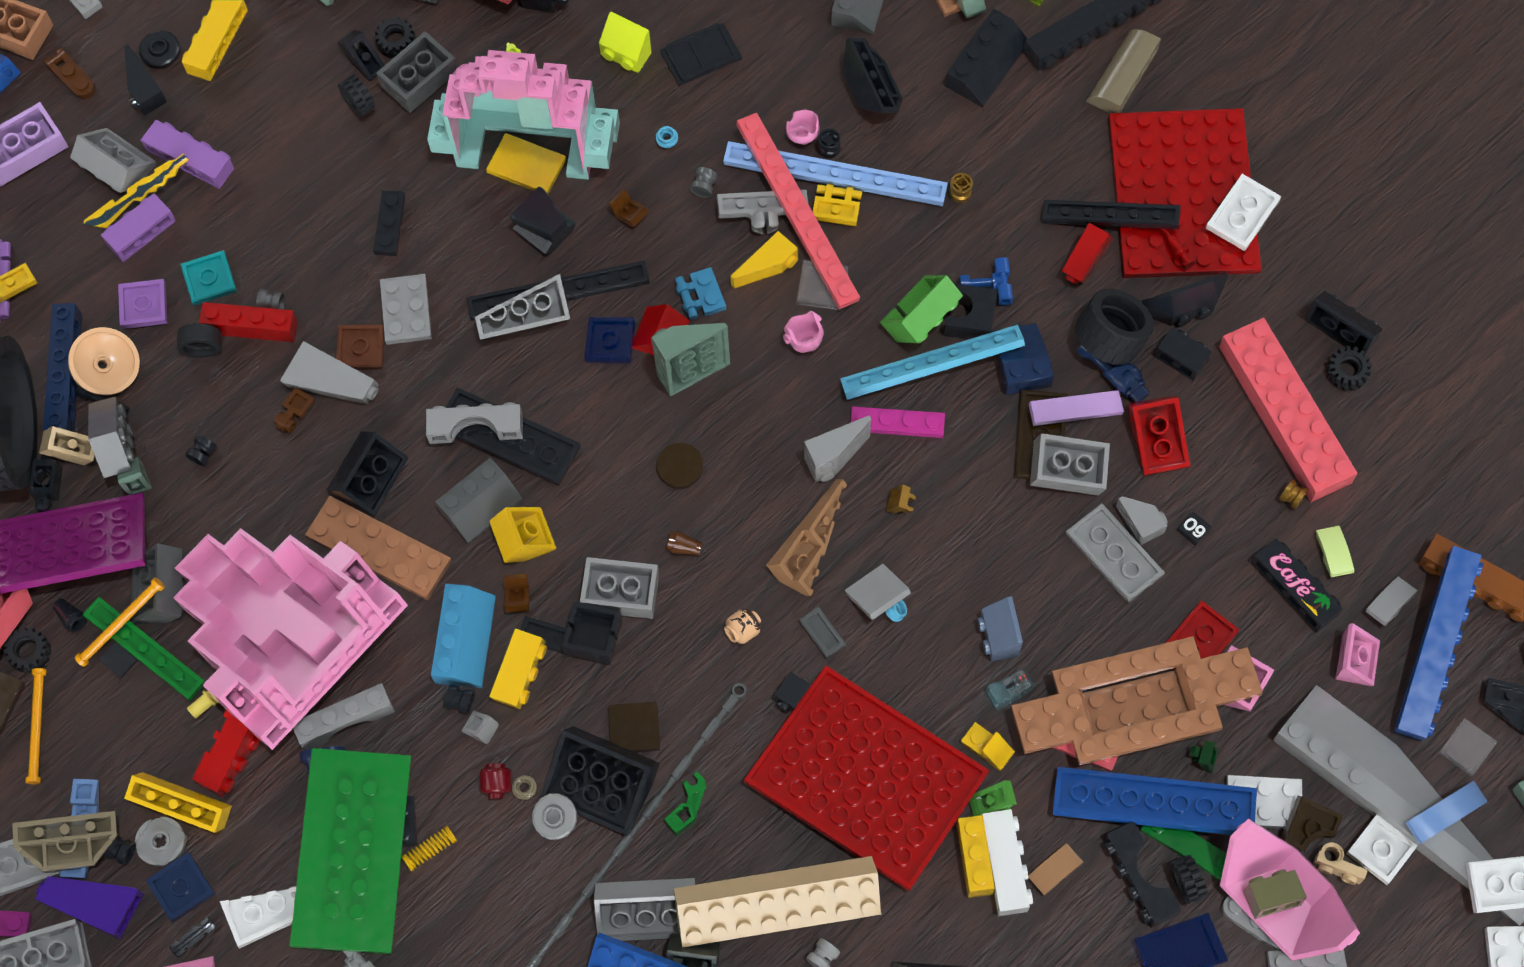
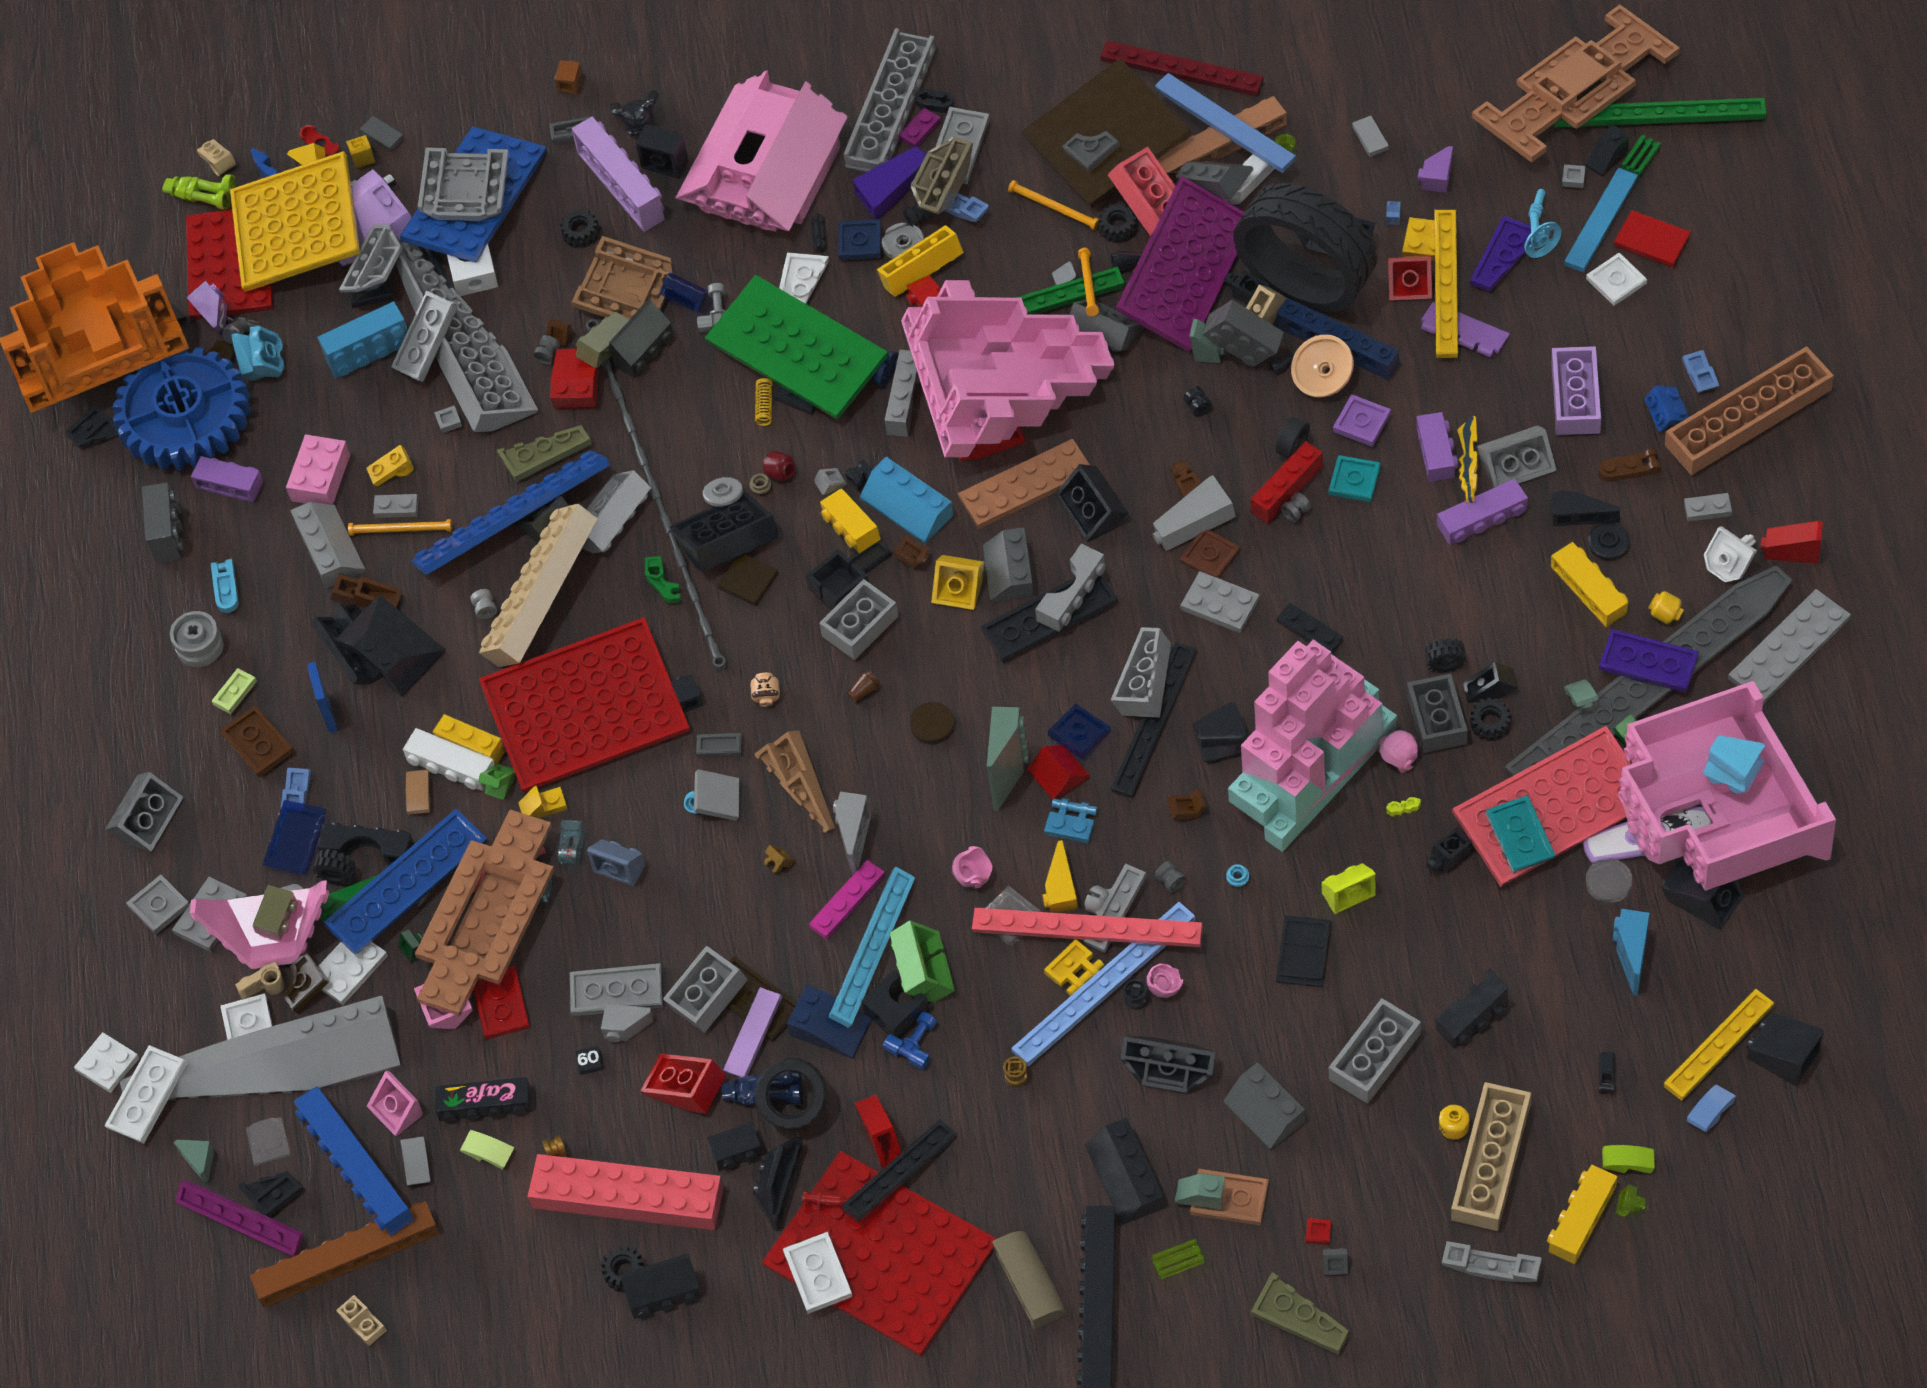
camera: 130 degrees right, 10 degrees down
(1446, 812) = (229, 1078): medium blue slope -> none

